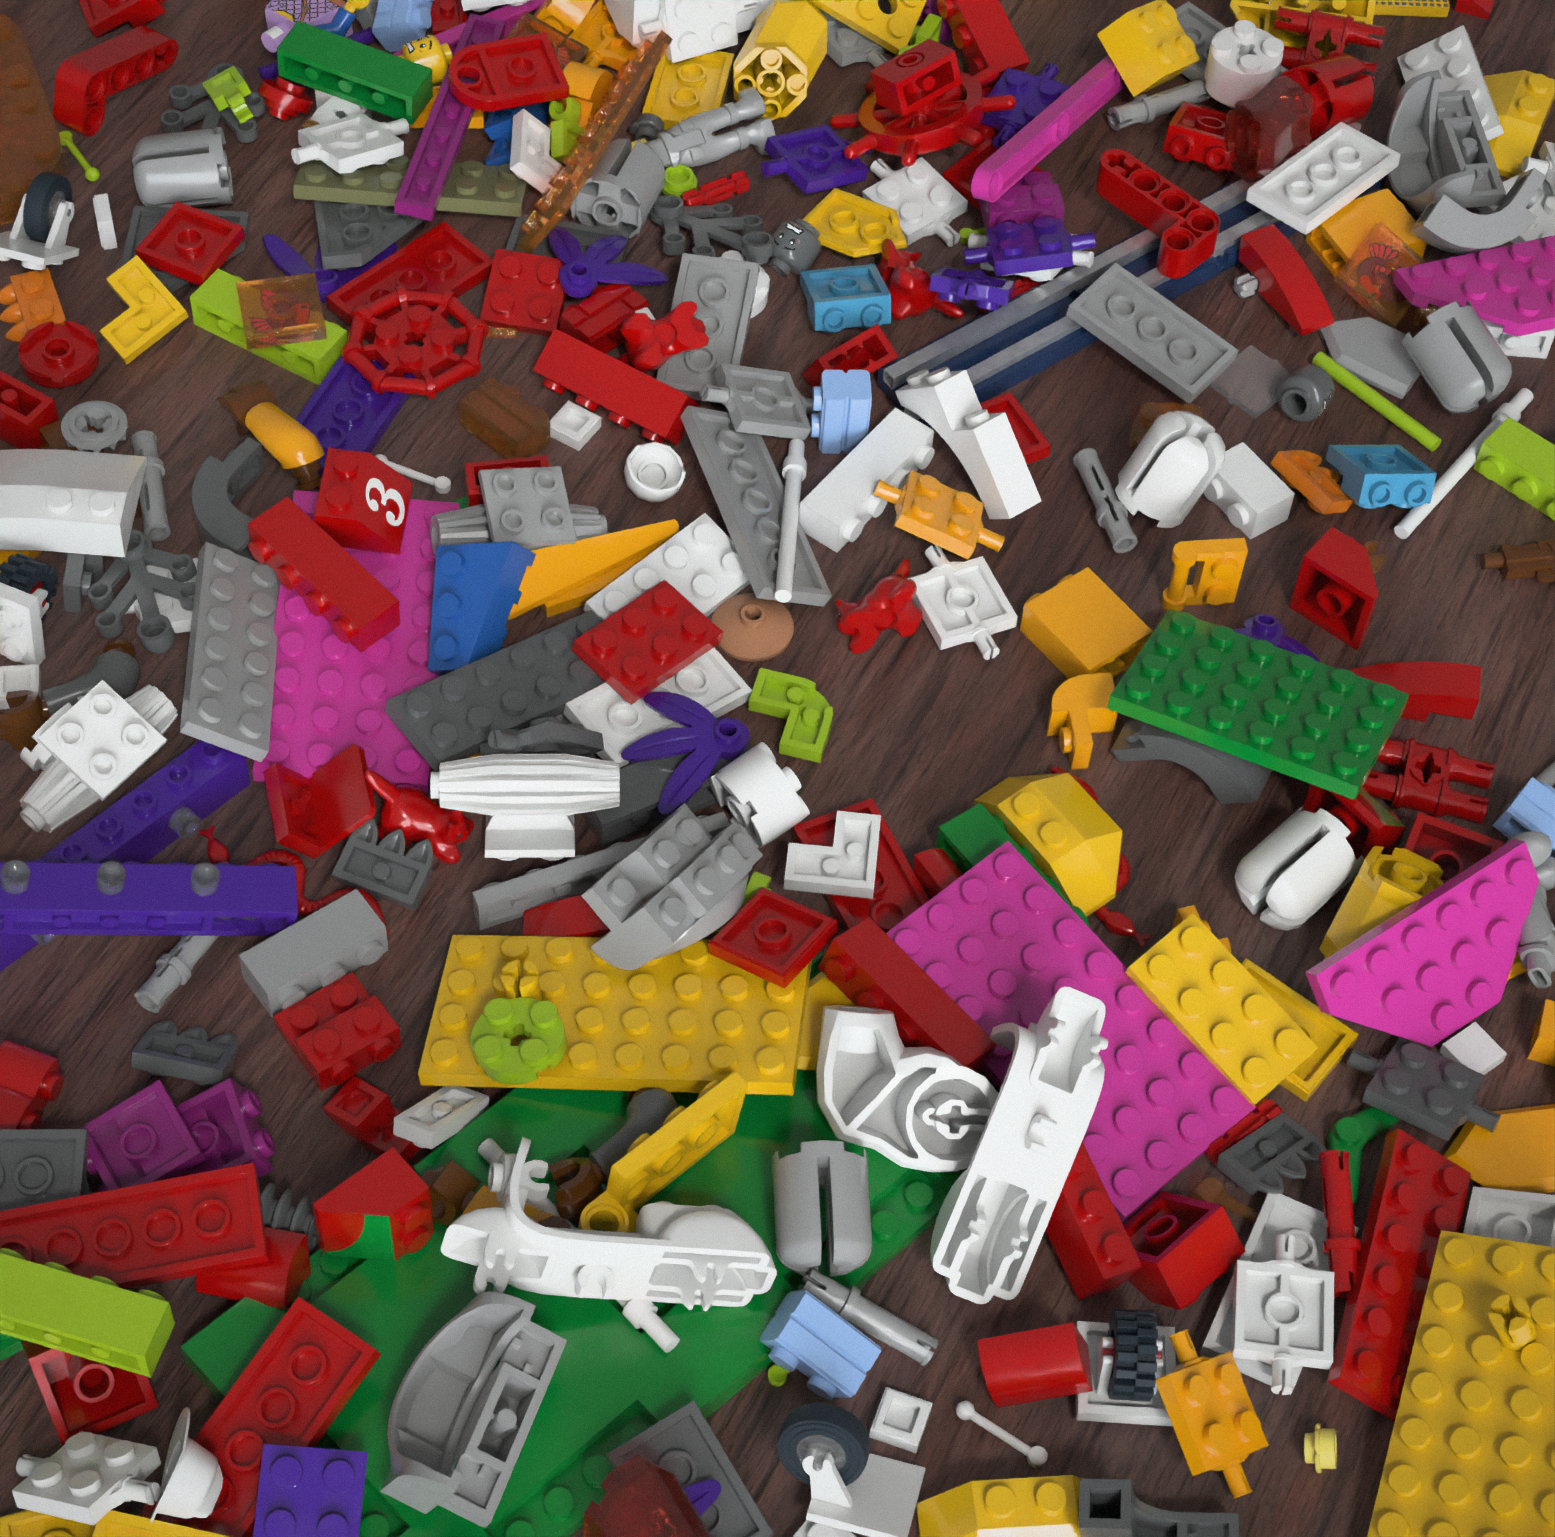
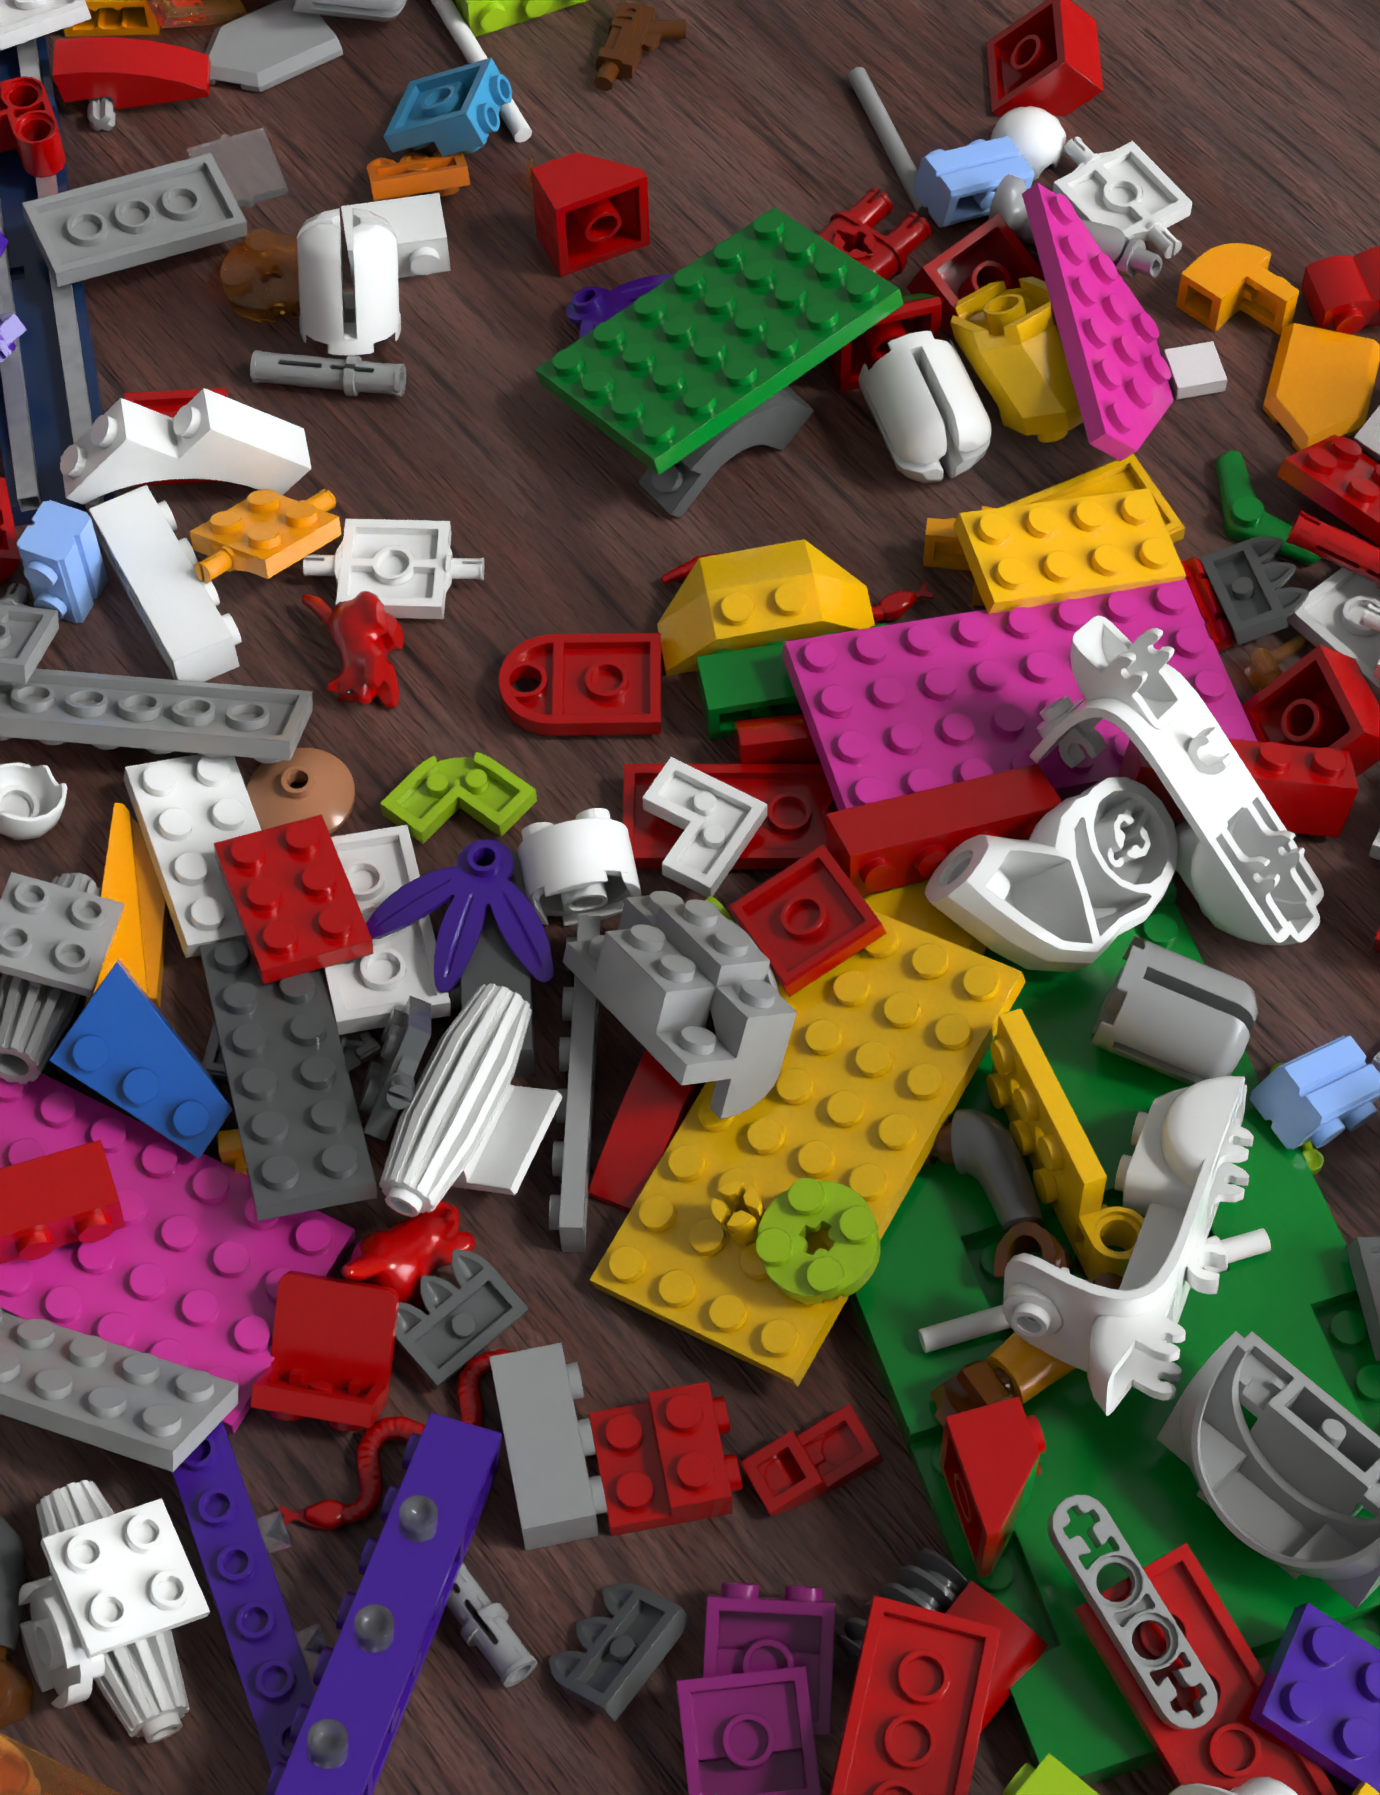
camera: 60 degrees left, 5 degrees up
(312, 1333) = (1139, 1606): none -> light grey beam
(440, 1116) = (855, 1380): white plate -> none
(794, 473) = (106, 656): white bar -> none
(870, 1317) = (1287, 1041): light grey pin -> none
(933, 756) = (585, 684): none -> red plate
(1079, 710) = (611, 523): light orange brick -> none
(1084, 626) = (499, 467): light orange brick -> none
(1216, 574) = (502, 318): light orange plate -> none
(1305, 393) = (294, 127): dark grey head -> none
(1377, 402) = (334, 75): lime bar -> none
(1424, 1089) = (1227, 426): dark grey plate -> none
(1431, 686) = (756, 185): red slope -> none

